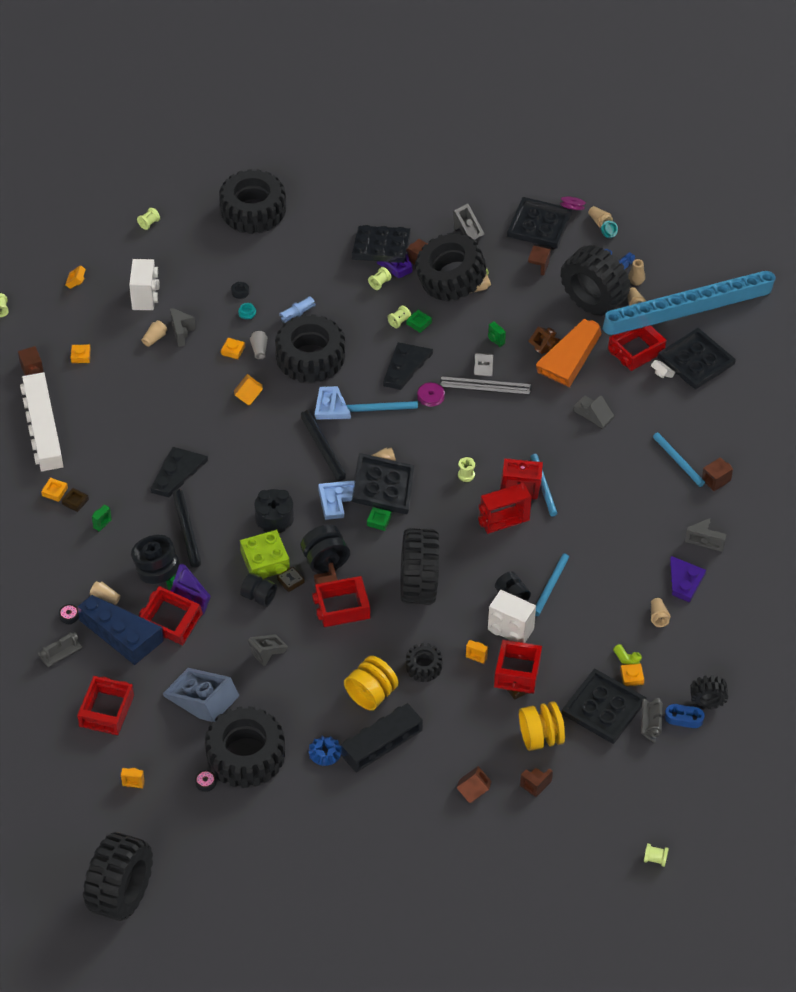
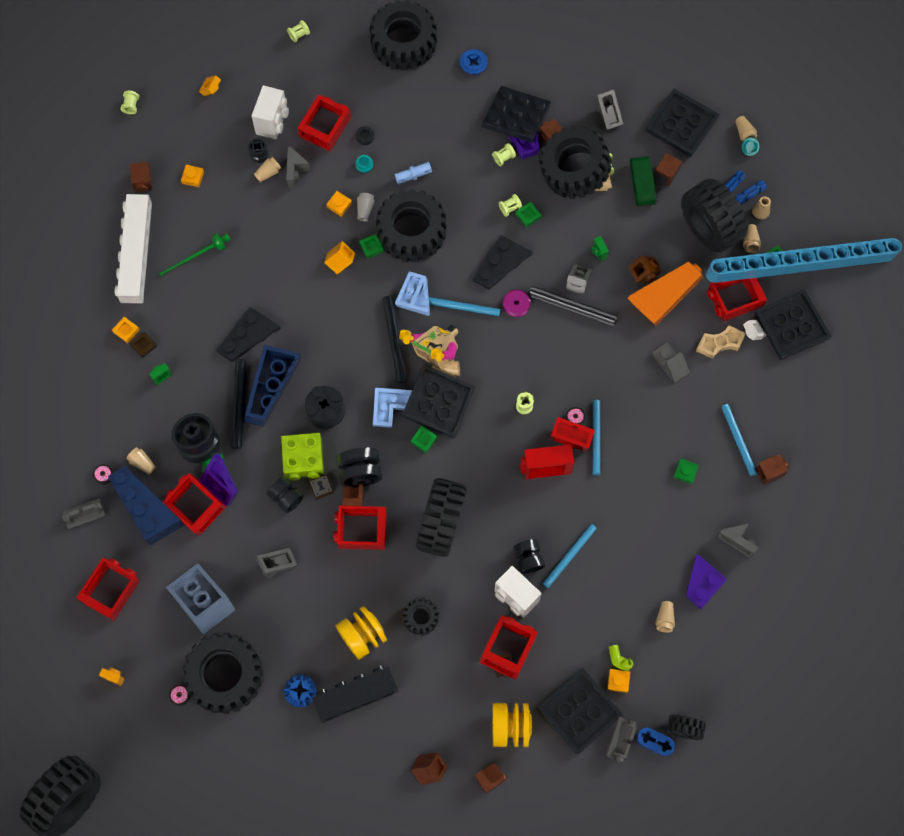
camera: 15 degrees right, 20 degrees up
(124, 400) = (218, 242): none -> green sword
(140, 319) = (258, 150): none -> black wheel
(202, 299) = (316, 137): none -> red window
(214, 497) = (271, 379): none -> dark blue wedge
(276, 375) = (371, 246): none -> green plate
(323, 208) = (473, 55): none -> blue gear
(364, 438) = (434, 346): none -> torso
(476, 651) = (475, 617): light orange plate -> none
(518, 274) = (642, 181): none -> dark green beam
(572, 203) = (722, 106): magenta piece -> none
(638, 494) = (686, 471): none -> green plate
(639, 383) = (713, 344): none -> tan tile

